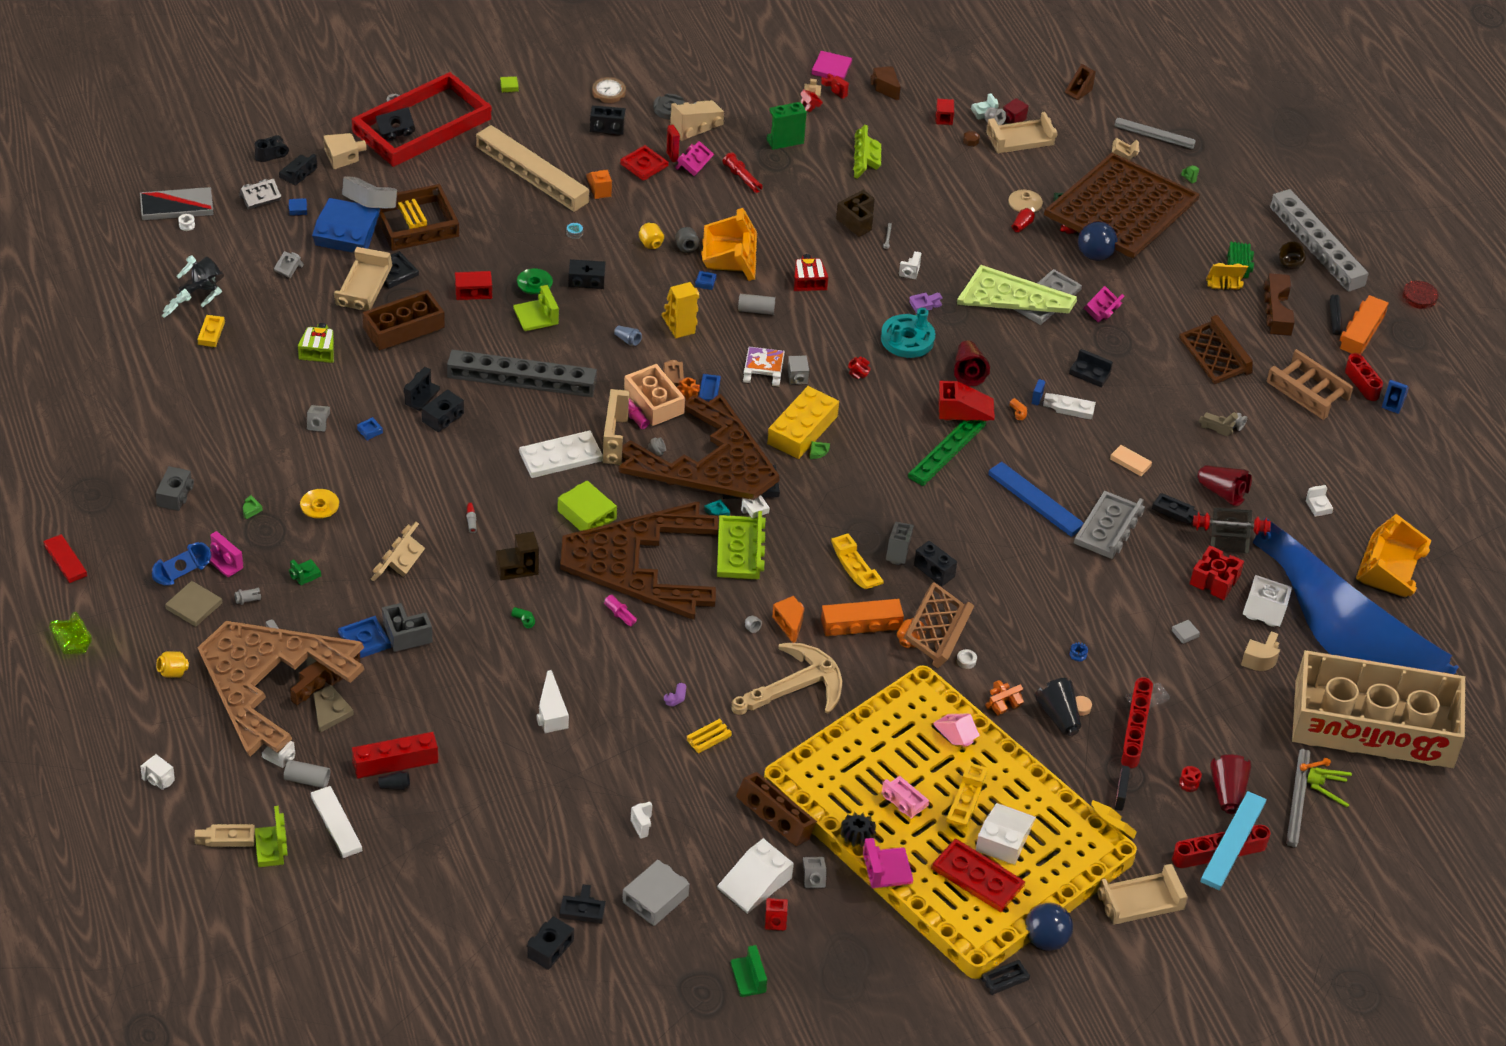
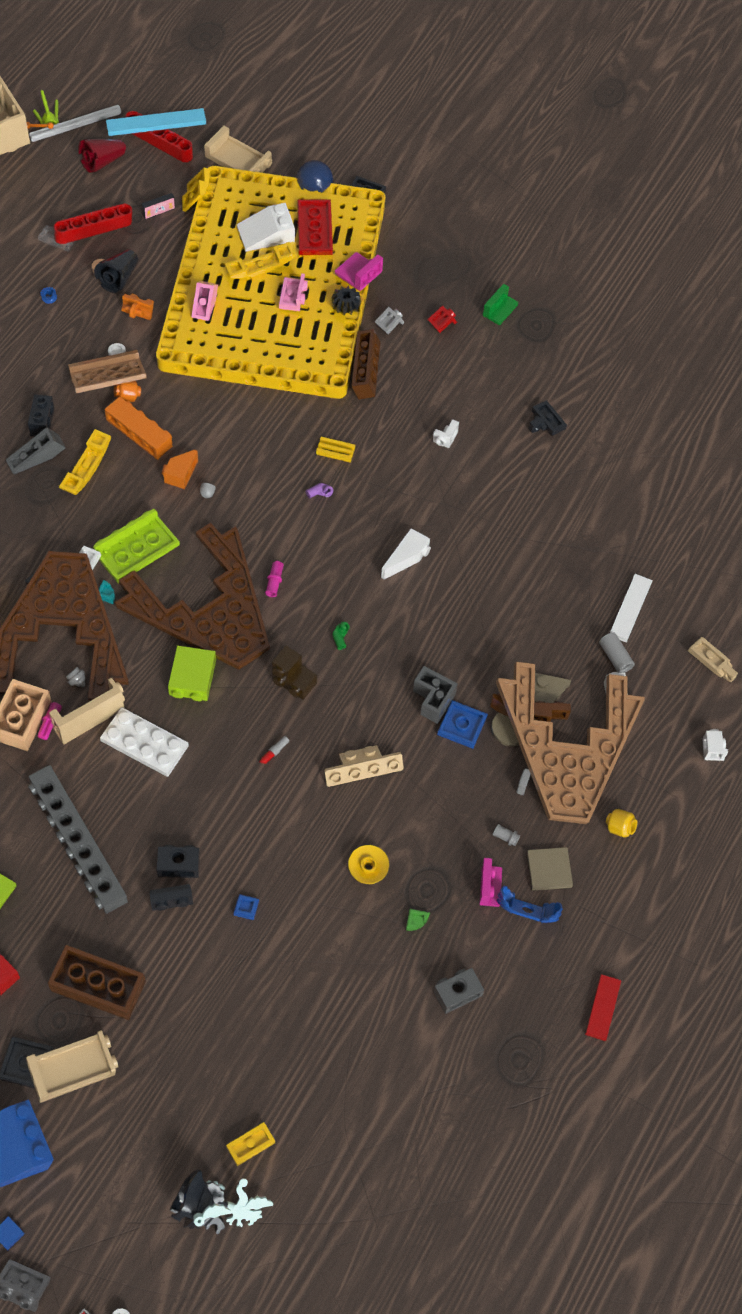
camera: 130 degrees left, 15 degrees up
(71, 634) = (668, 921): clear neon green bracket -> none
(272, 842) = (689, 625): lime bracket -> none
(288, 264) = (102, 1158): light grey bracket -> none
(304, 572) = (443, 818): green bracket -> none
(317, 344) = (186, 1033): lime torso -> none
(317, 417) = (272, 954): light grey bracket -> none
(395, 755) = (547, 611): red brick -> none
(396, 781) = (565, 597): black cone -> none
(550, 942) = (592, 415): black brick -> none
(656, 892) = (495, 387): light grey brick -> none
(756, 876) = (427, 346): white slope -> none
(822, 669) = (228, 426): tan piece -> none
(1190, 778) = (114, 178): red wheel -> none

